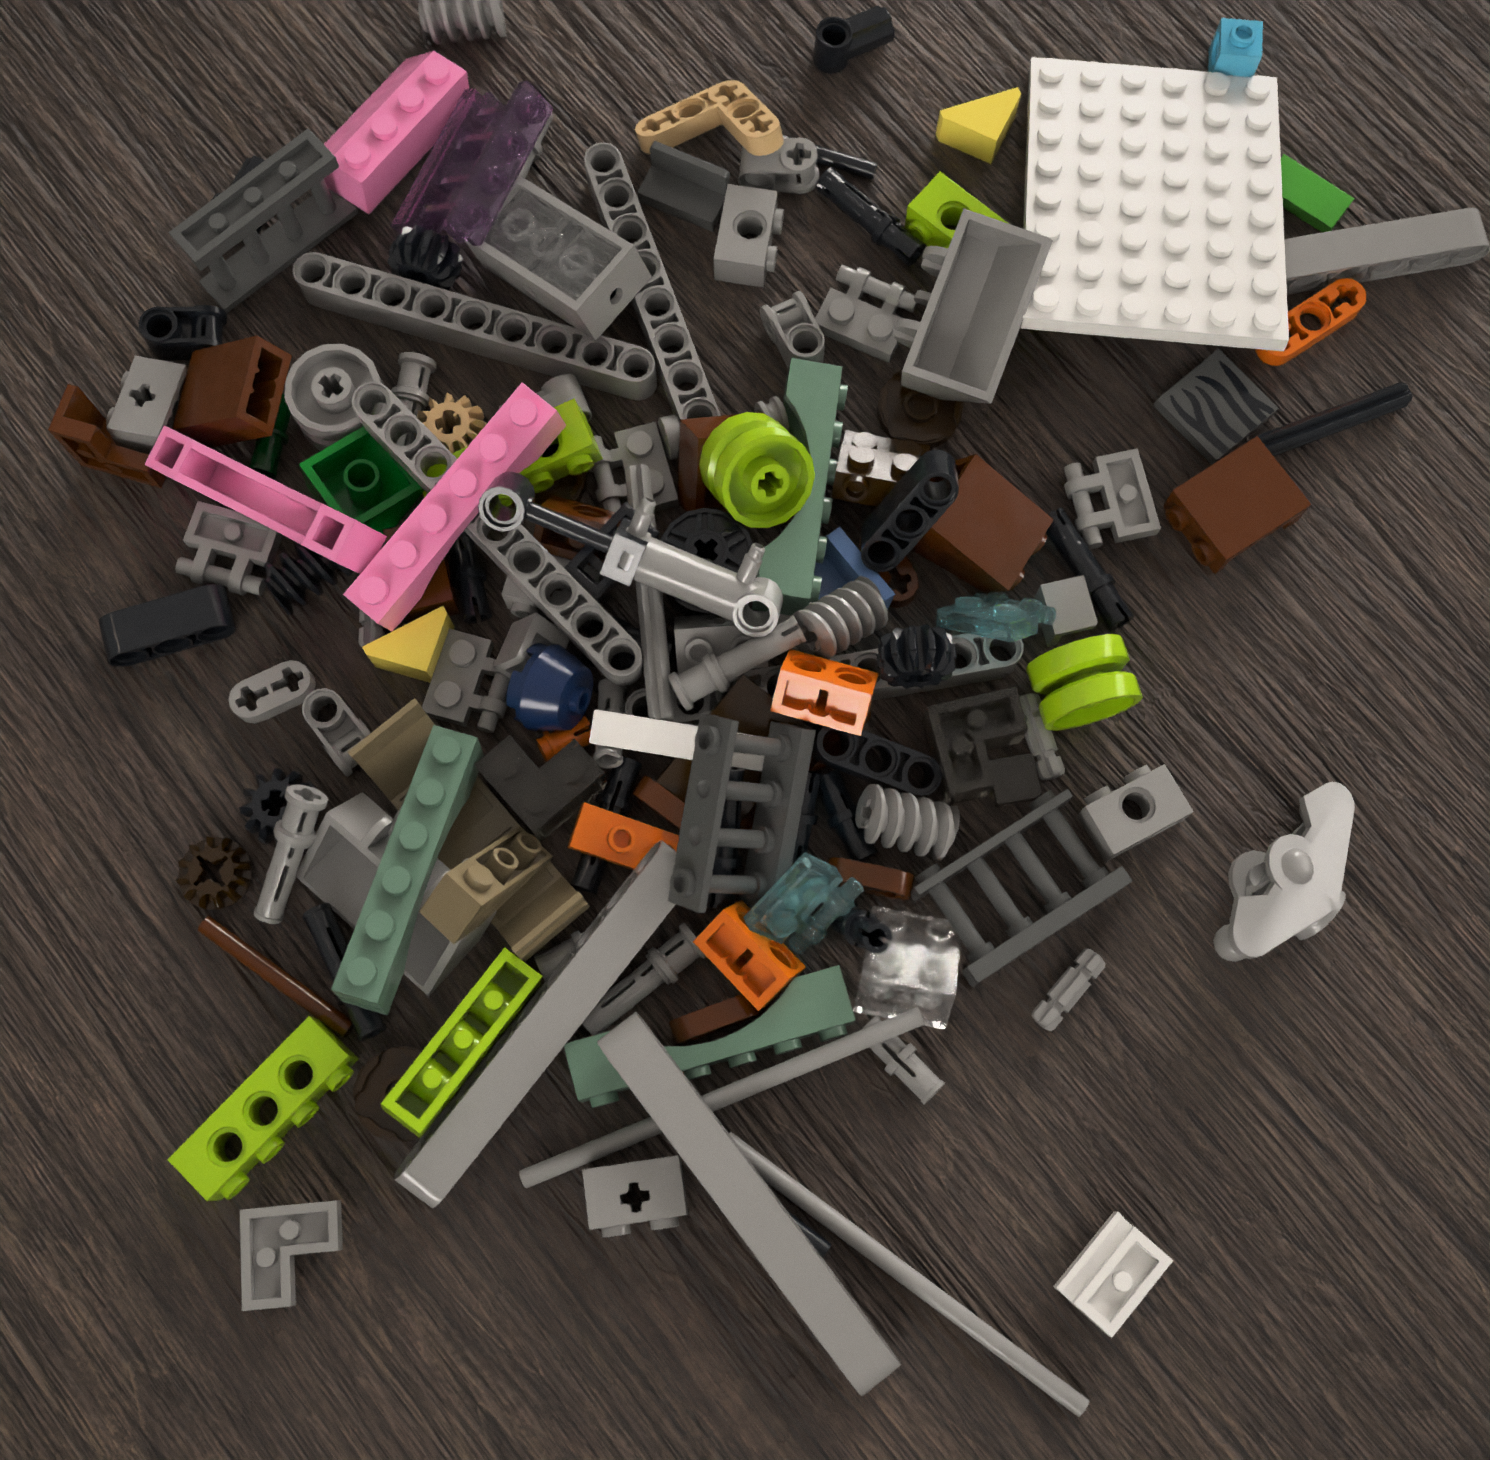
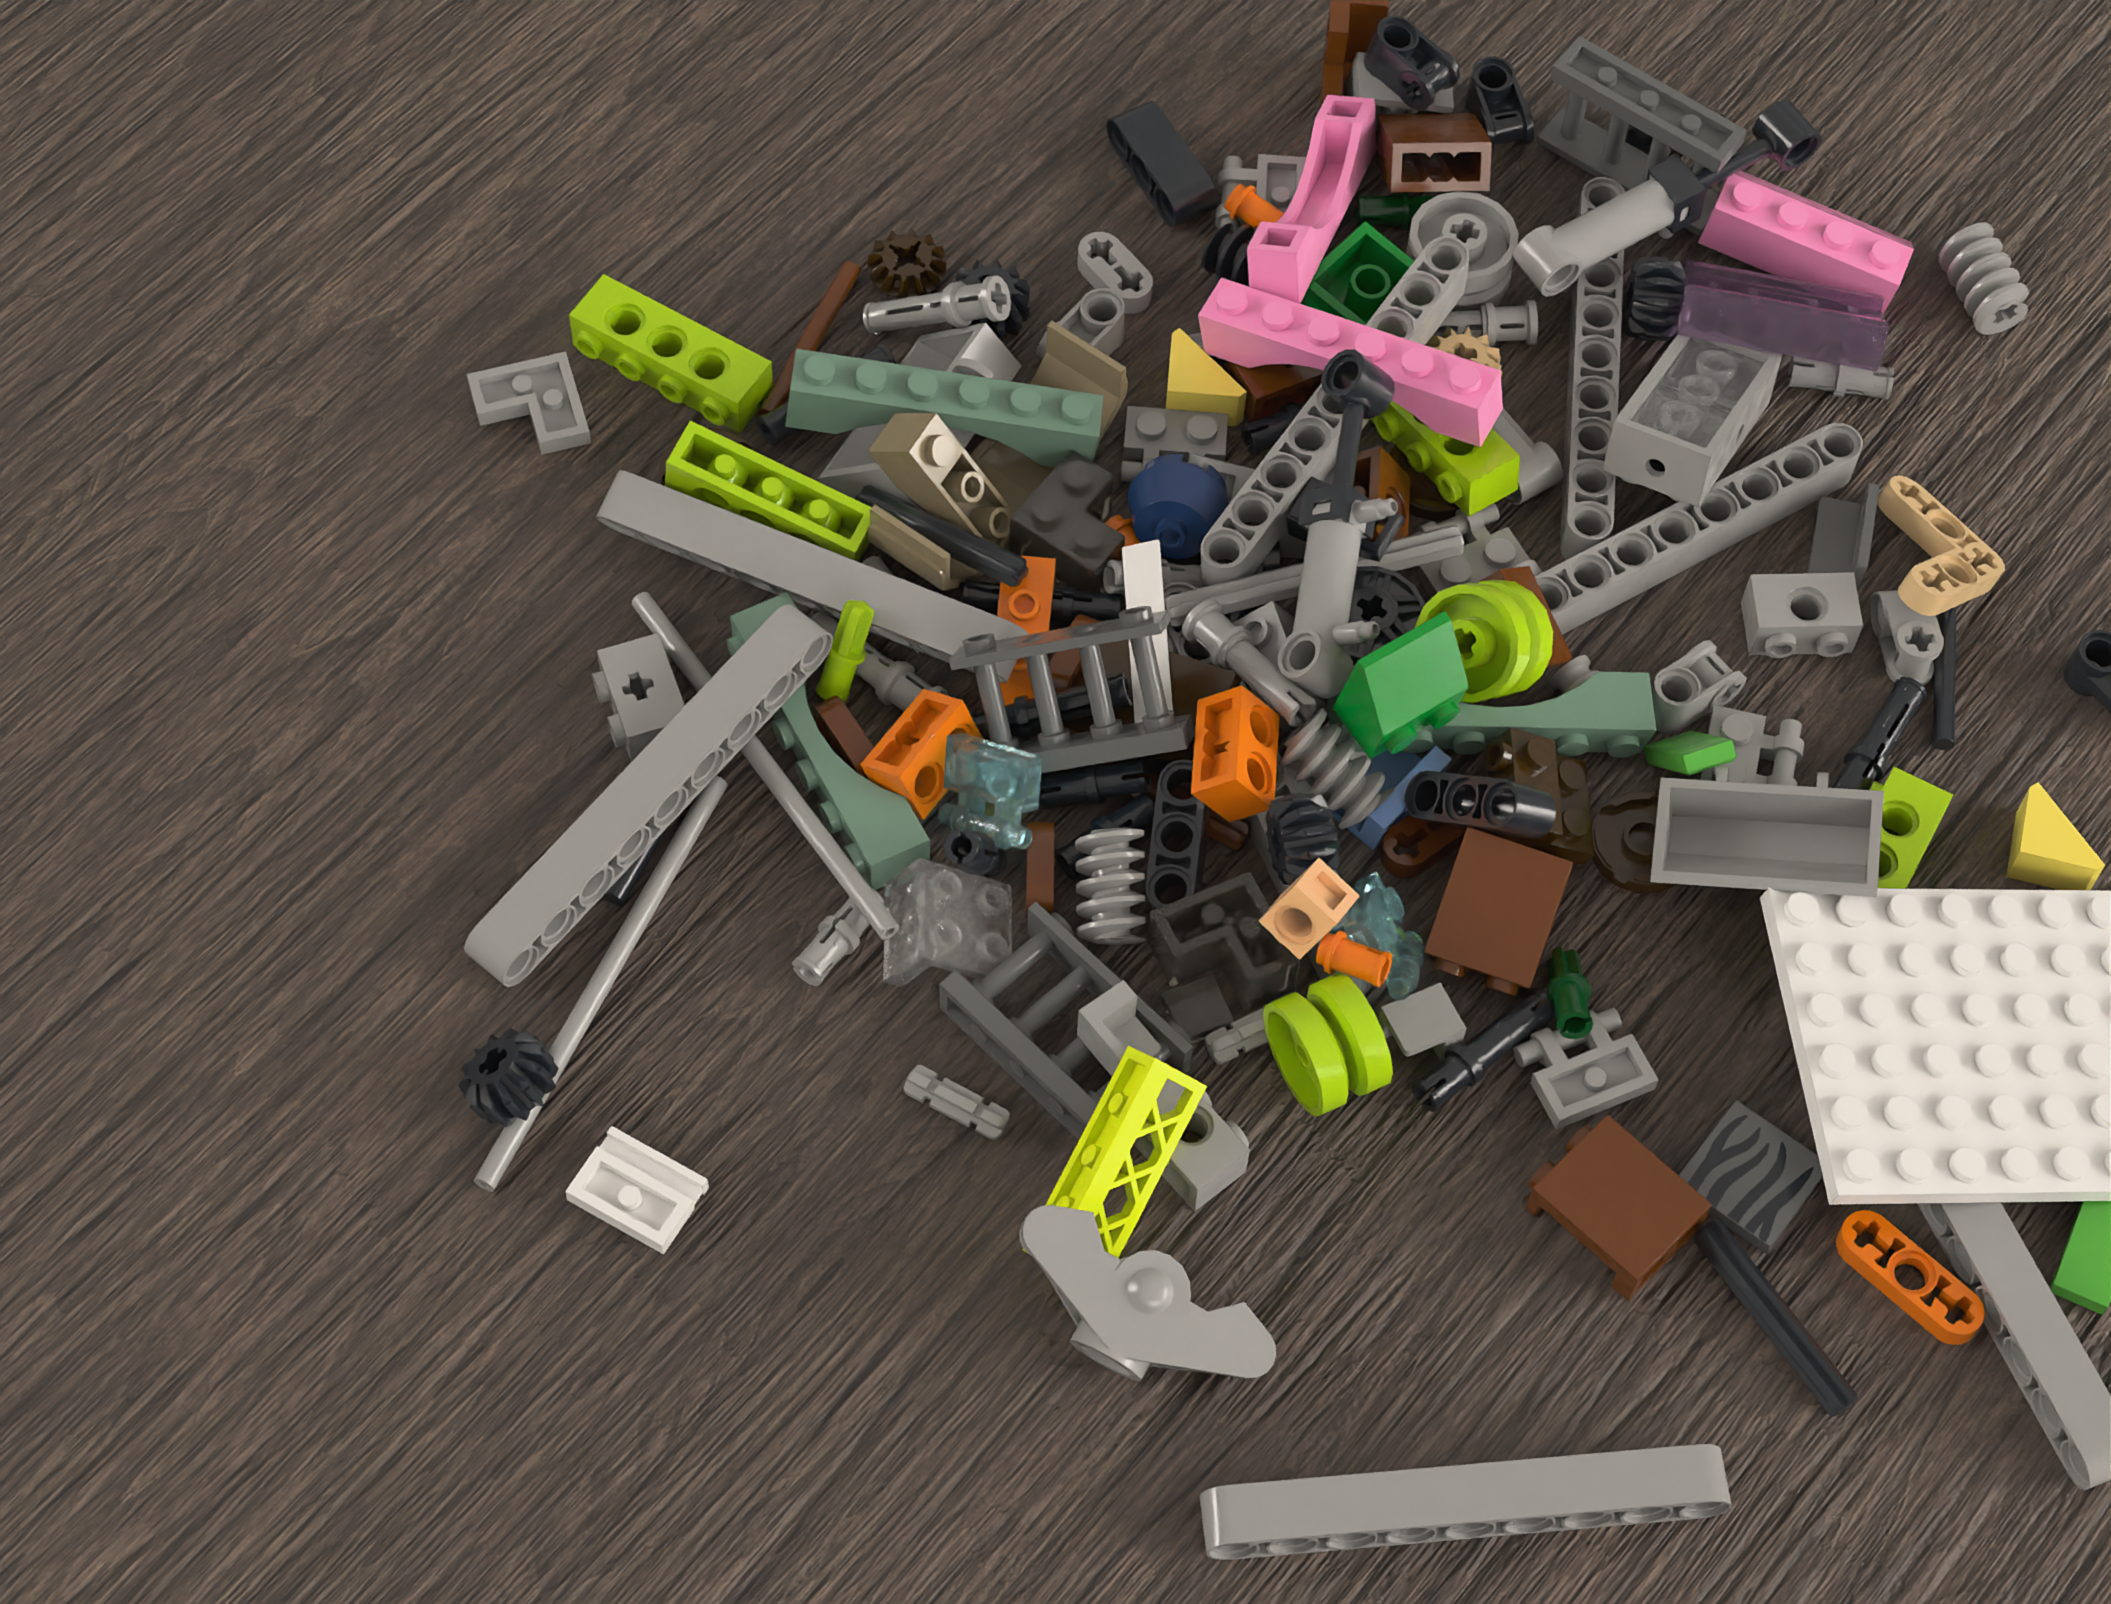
camera: 75 degrees right, 15 degrees down
(137, 387) = (1407, 61): none -> black piece
(253, 554) = (1249, 207): none -> orange pin
(347, 229) = (1663, 203): none -> piece
(535, 897) = (959, 543): none -> black axle
(635, 998) = (846, 650): none -> lime axle
(804, 541) = (1404, 688): none -> slope
(867, 346) = (1690, 752): none -> bright green tile
(989, 665) = (1309, 908): none -> light nougat brick
(1002, 1374) = (508, 1077): none -> black gear
(1035, 642) = (1352, 958): none -> orange pin
(1049, 845) = (1111, 1026): none -> light grey panel
(1059, 493) = (1569, 994): none -> dark green axle
(1162, 875) = (1108, 1142): none -> neon yellow fence
(1456, 679) = (1464, 1501): none -> light grey beam

